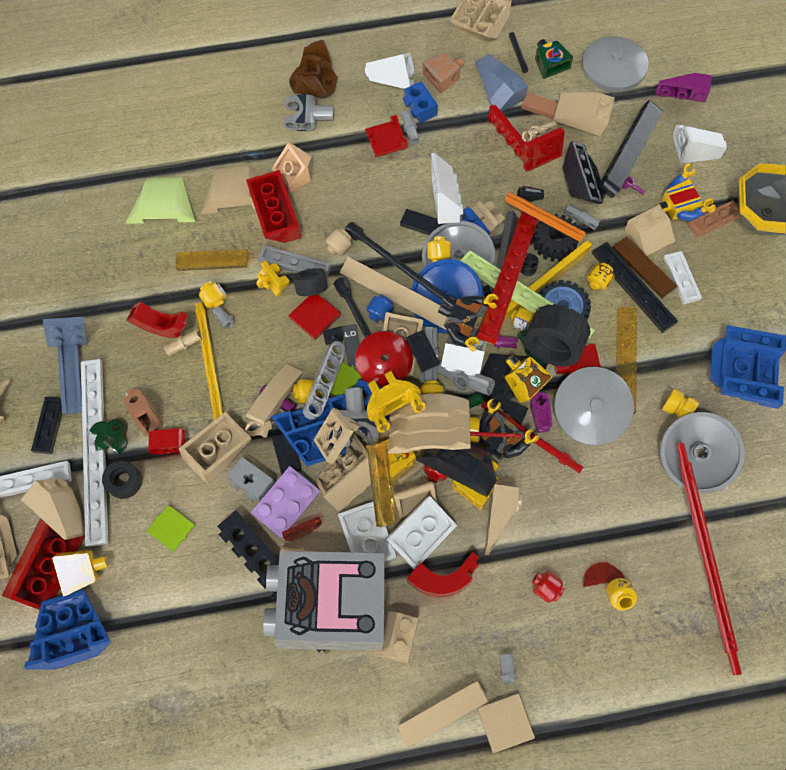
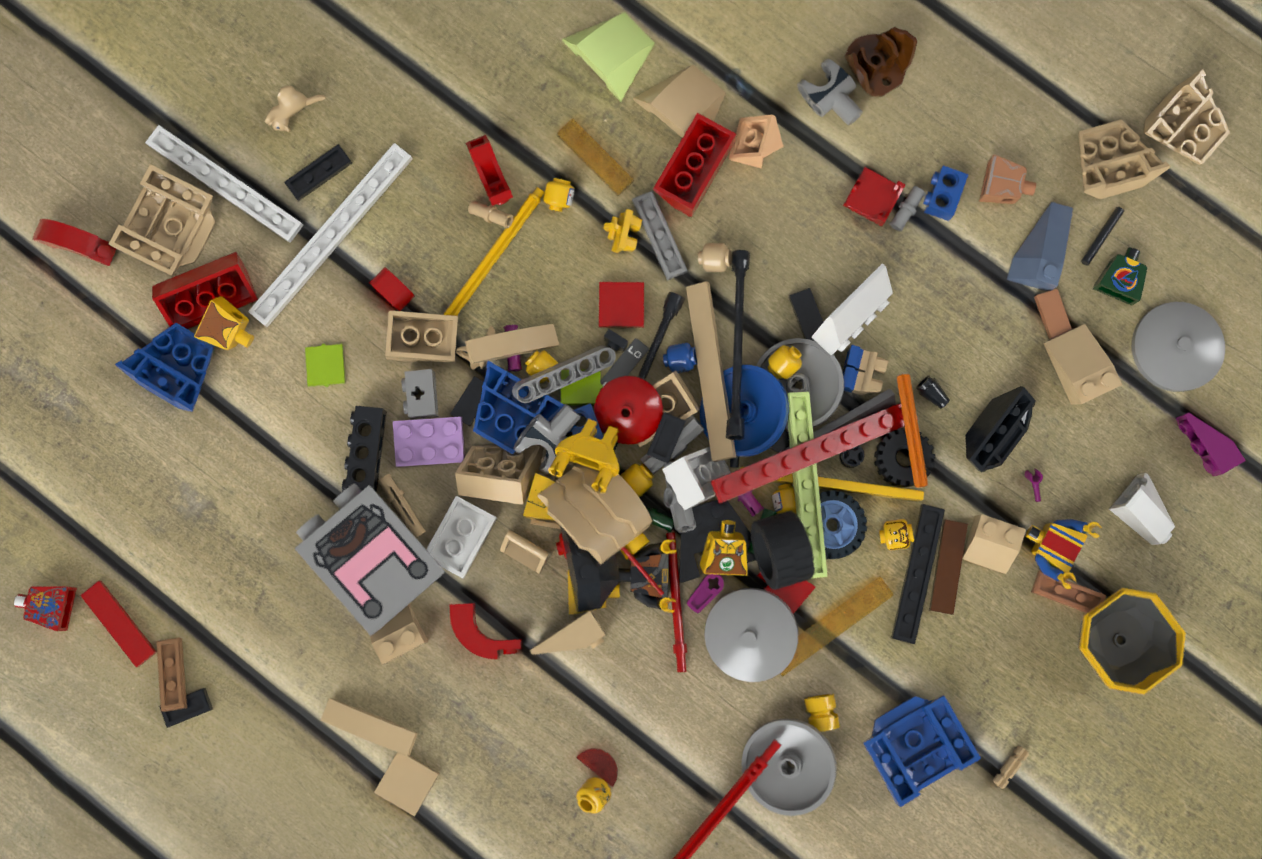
camera: 45 degrees right, 15 degrees up
(56, 506) = (253, 259): tan slope -> none
(66, 335) = (400, 112): sand blue bracket -> none
(107, 437) = (349, 236): dark green plate -> none
(111, 474) = (323, 271): black tyre -> none
(137, 406) = (397, 241): nougat torso -> none
(225, 320) = (547, 224): light grey pin -> none
(302, 529) = (416, 477): clear red tile -> none
(310, 282) = (648, 271): black tyre -> none
(322, 440) = (530, 436): tan piece -> none
(381, 484) = (508, 512): clear yellow tile -> none
(392, 71) = (957, 133): white slope -> none
(421, 532) = (501, 580): white plate -> none
(465, 318) = (723, 453): torso -> none
(507, 668) = (450, 749): light grey pin -> none
(532, 153) = (990, 361): red bracket -> none
(537, 131) = (1006, 341): tan pin -> none
(548, 586) = (548, 727): red head -> none
(582, 216) = (952, 463): light grey pin -> none
(630, 149) = (1077, 448): beam -> none
(682, 277) = (969, 611): white tile -> none

